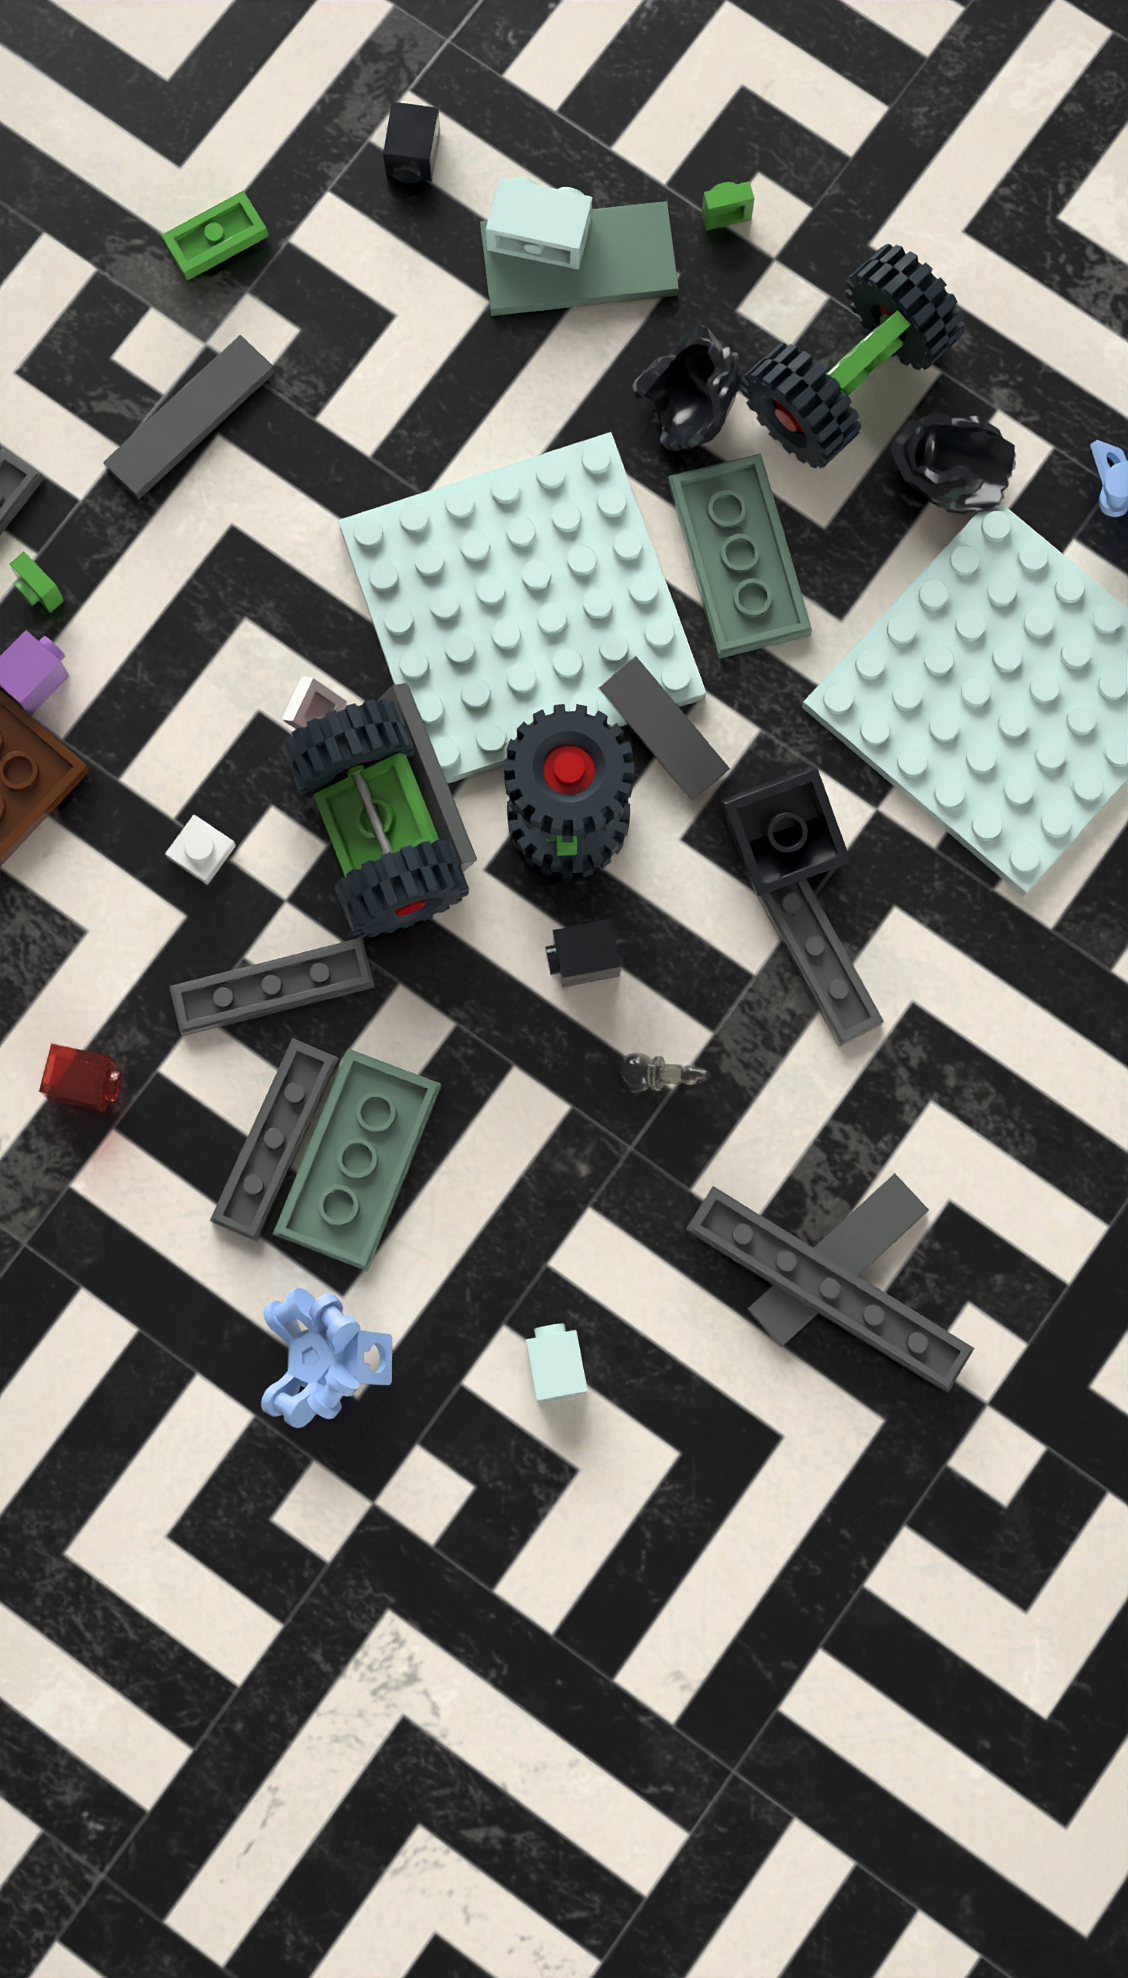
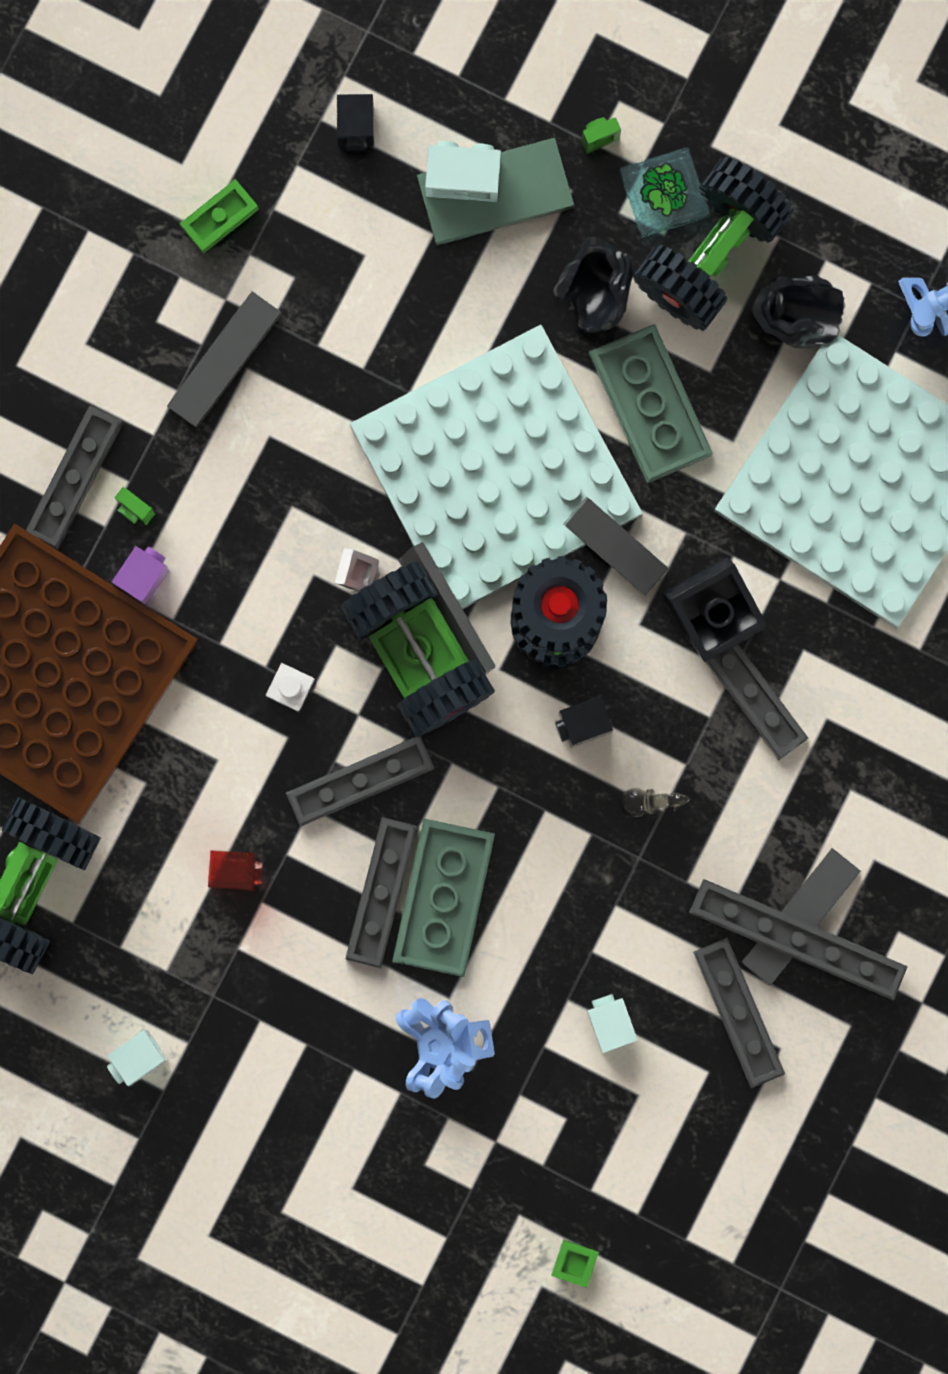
camera: 10 degrees left, 5 degrees up
(452, 1688) = (574, 1263): none -> bright green plate
(733, 1378) = (739, 1013): none -> dark grey tile
(799, 291) = (664, 192): none -> clear light blue tile

